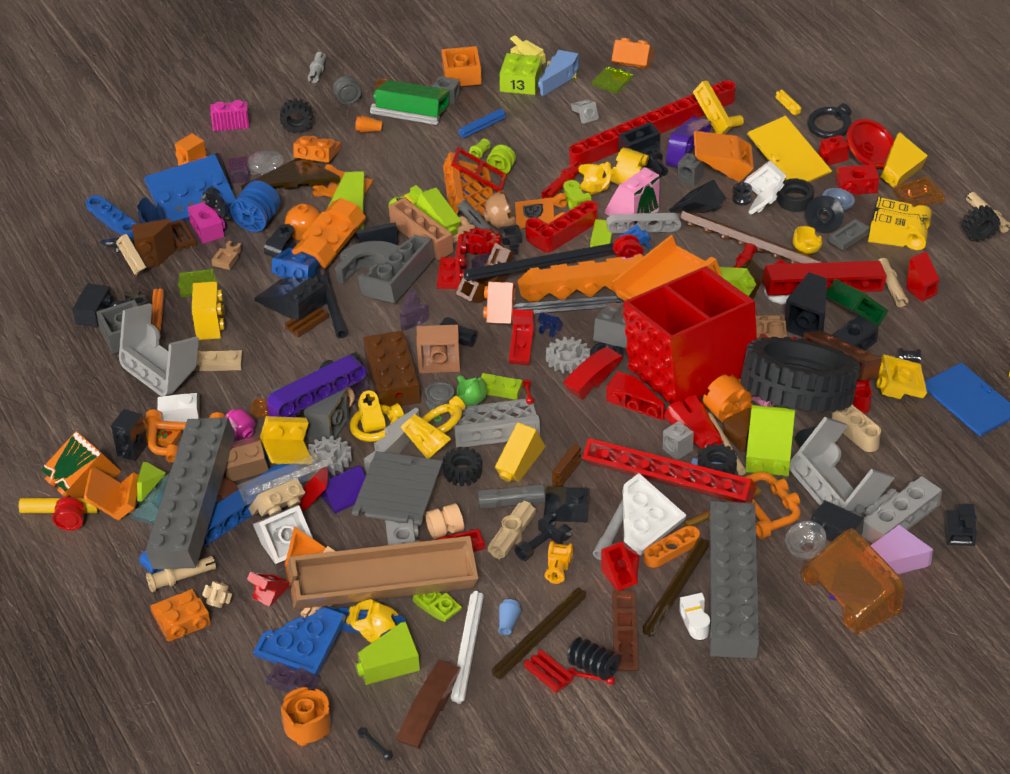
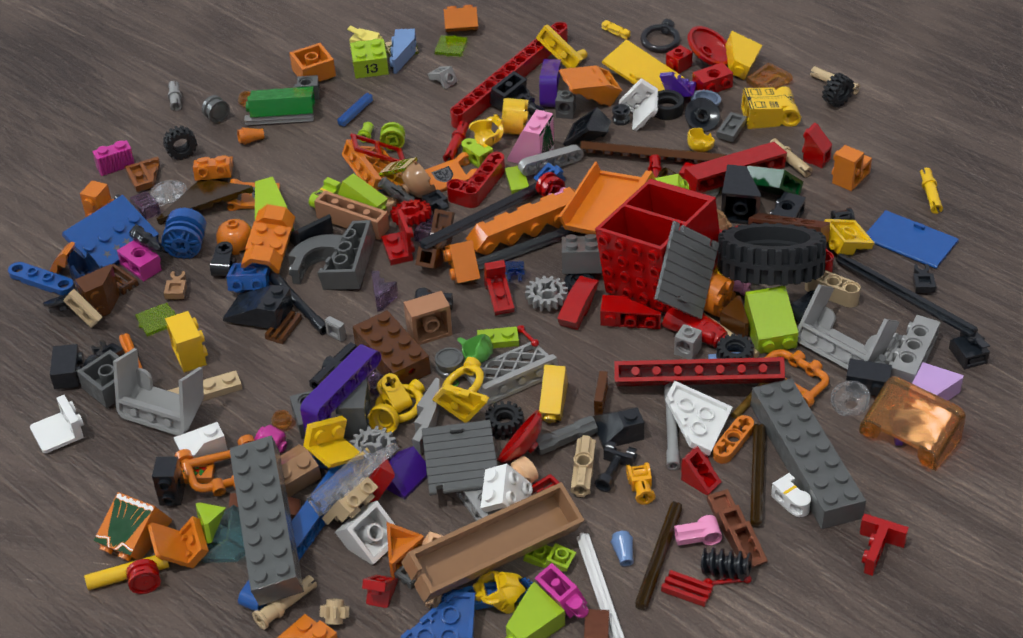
camera: 20 degrees left, 0 degrees up
(61, 361) = (58, 429): none -> white bracket
(131, 206) = (61, 260): none -> orange slope
(251, 138) = (143, 173): none -> dark orange wing
(350, 335) = (335, 328): none -> light grey tile
(350, 430) = (384, 416): none -> yellow hair
(420, 525) = (503, 488): none -> white bracket
(425, 637) = (562, 591): none -> dark pink brick
(464, 488) = (523, 439): none -> red dish
(487, 191) = (397, 166): none -> clear neon green piece
(593, 624) = (704, 531): none -> bright pink piece
(696, 367) = (686, 270): none -> dark grey door
(760, 676) = (880, 533): none -> red bracket
(816, 177) = (678, 84): none -> dark purple slope
(925, 454) = (907, 295): none -> black axle
(946, 308) = (850, 167): none -> orange brick
(955, 444) = (923, 280): none -> black plate

